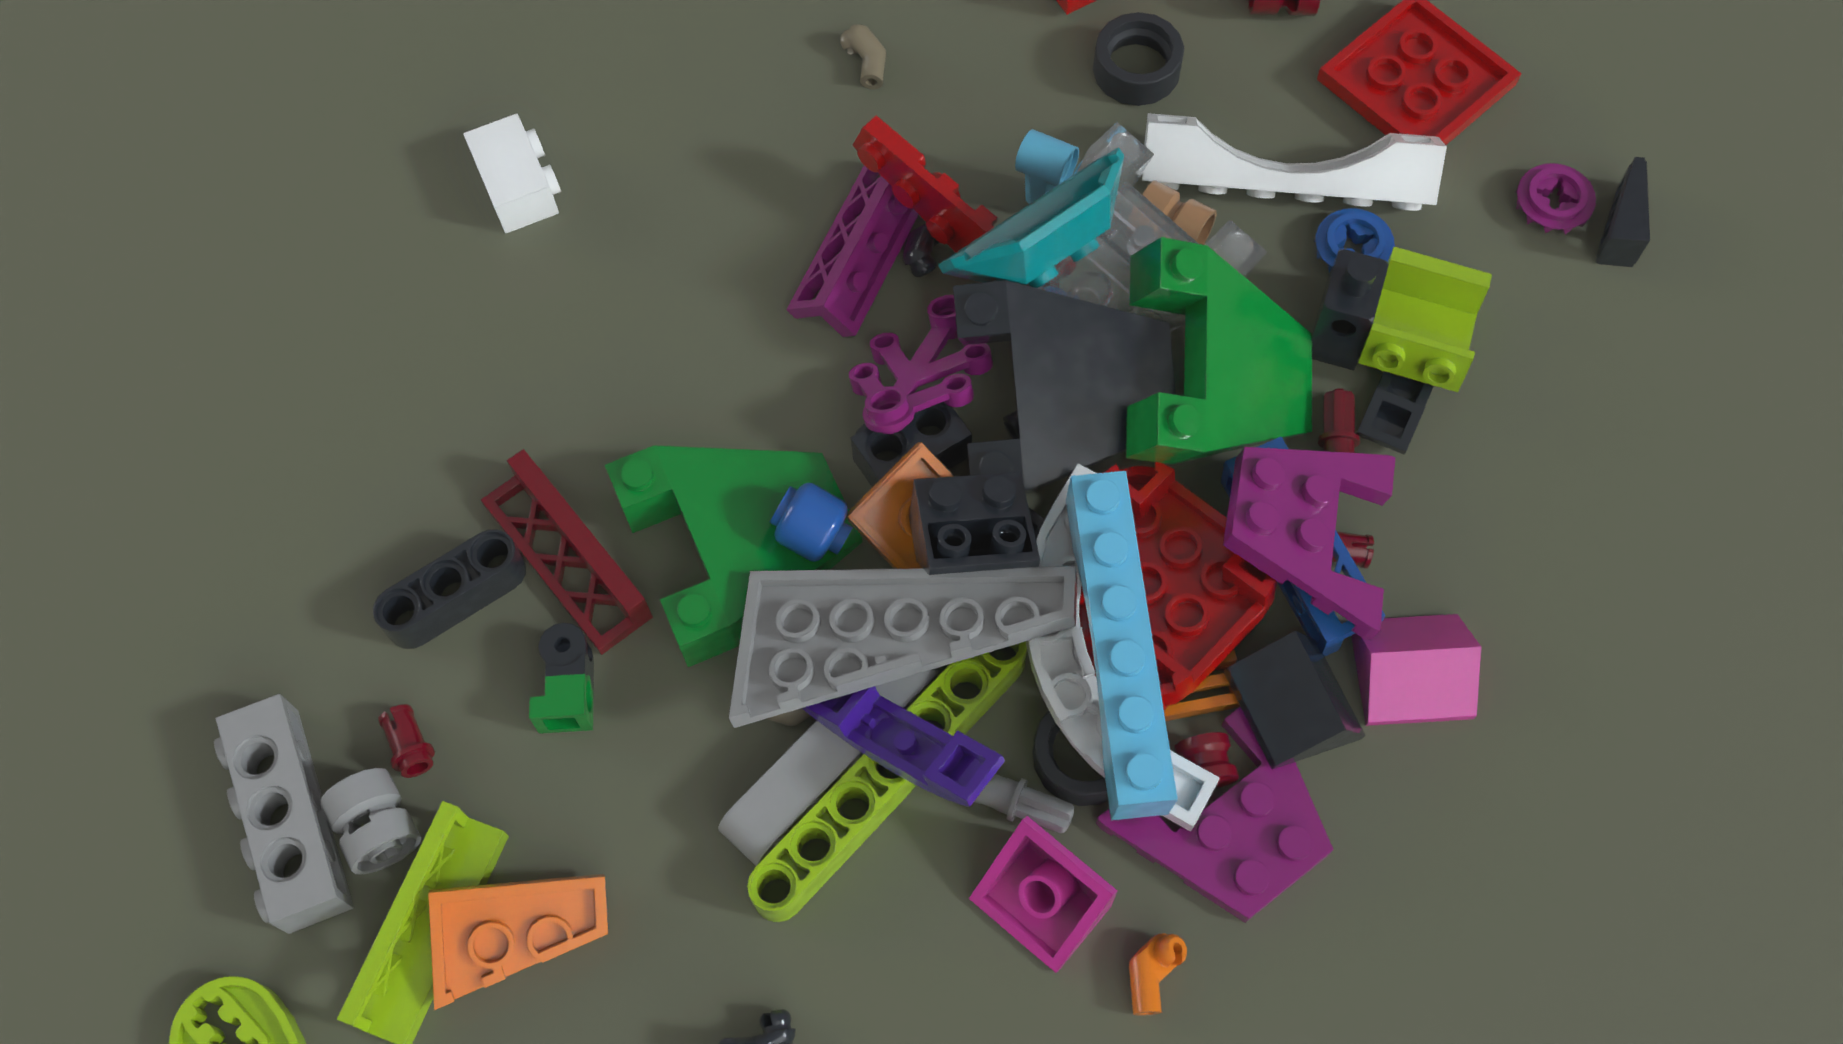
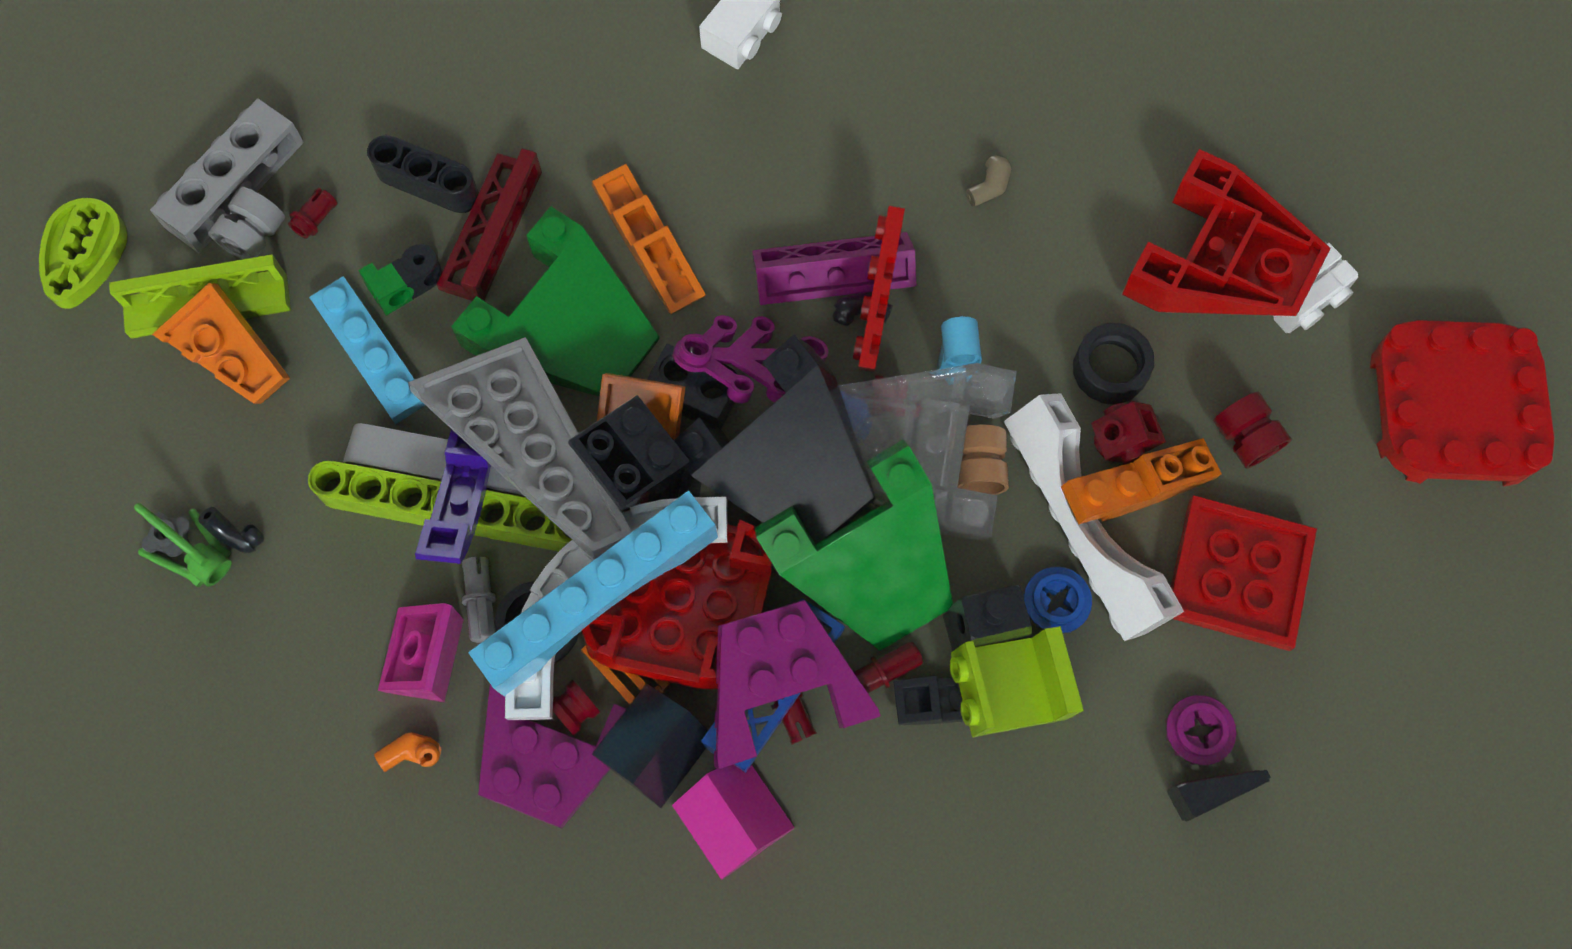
camera: 55 degrees right, 5 degrees up
(625, 767) = (367, 348): none -> medium azure plate
(702, 402) = (648, 239): none -> orange slope
(811, 522) = (586, 354): blue head -> none
(1046, 230) = (878, 369): teal wedge -> none
(1229, 66) = (1127, 432): none -> dark red brick
(1280, 101) = (1141, 483): none -> orange slope

